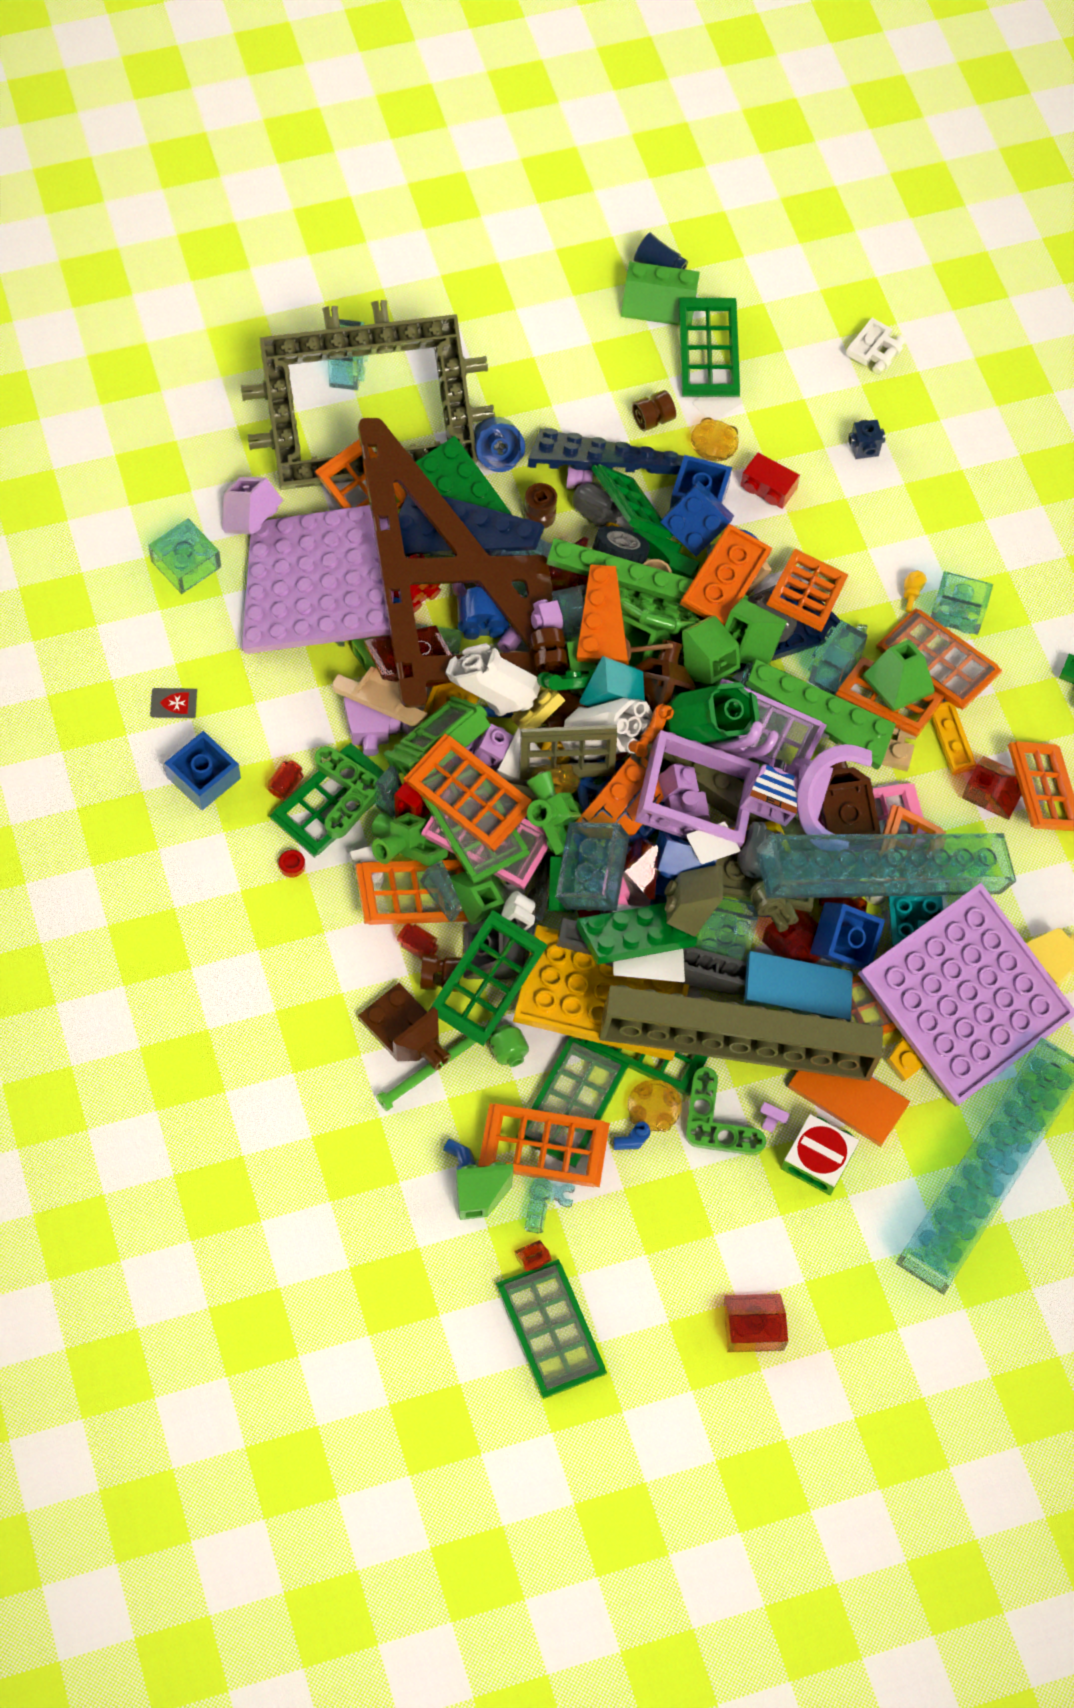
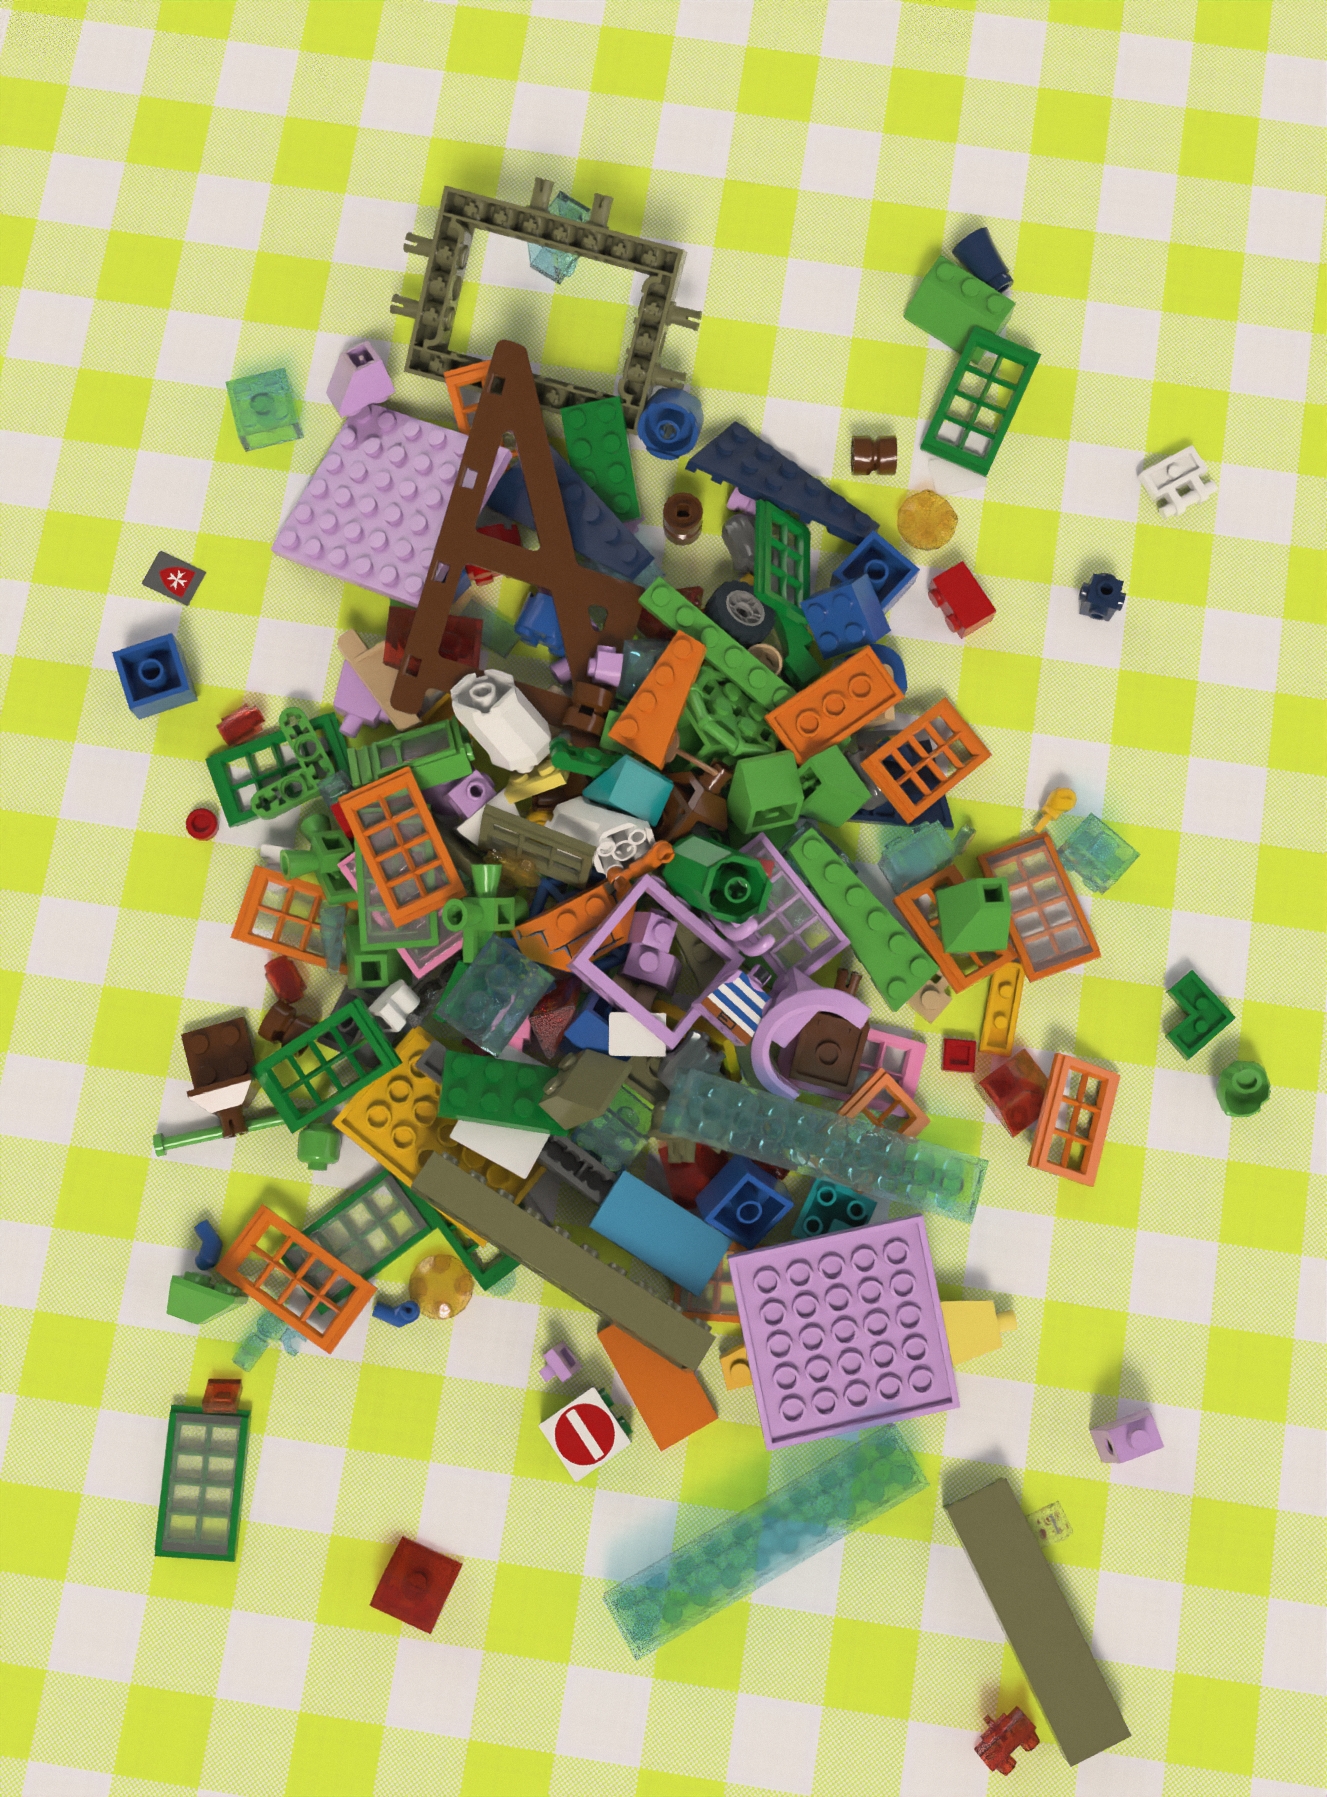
camera: 30 degrees right, 15 degrees up
(706, 1122) = (484, 1333): bright green beam -> none
(939, 782) = (958, 1056): none -> red tile

